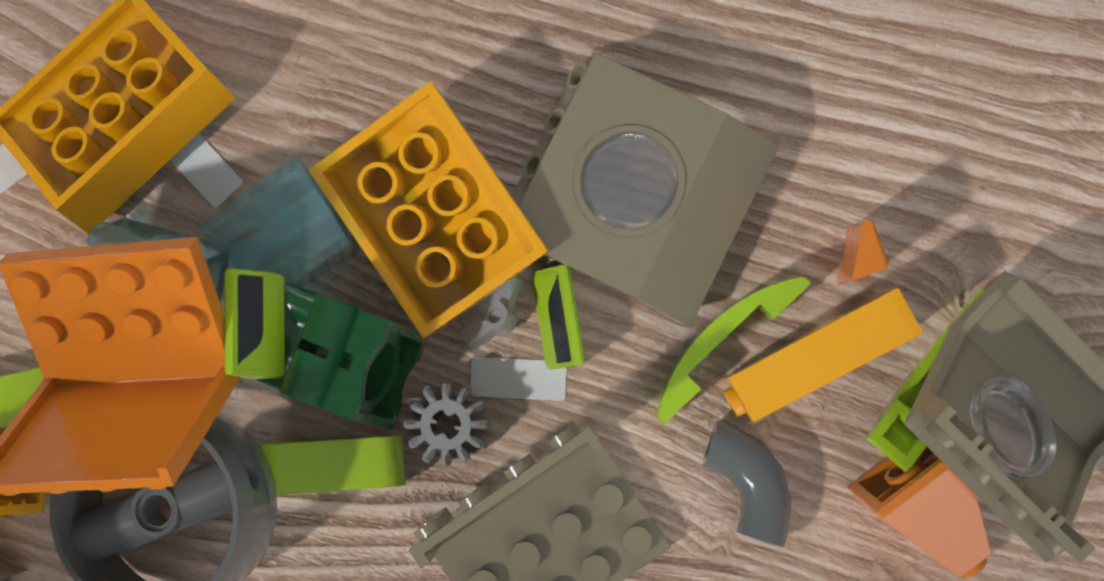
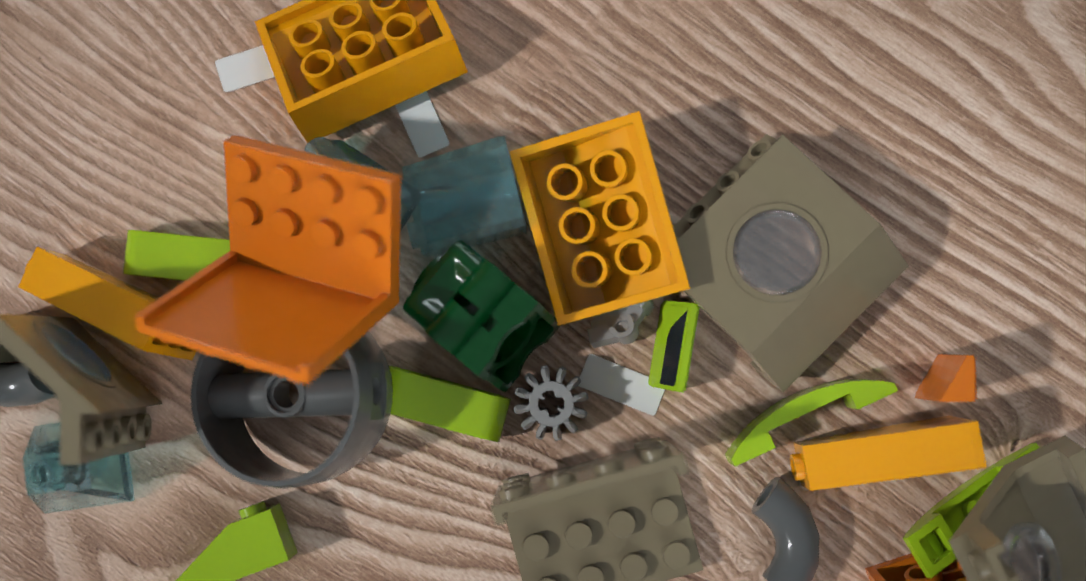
camera: 25 degrees right, 0 degrees up
(254, 324) = (422, 266): lime slope -> none

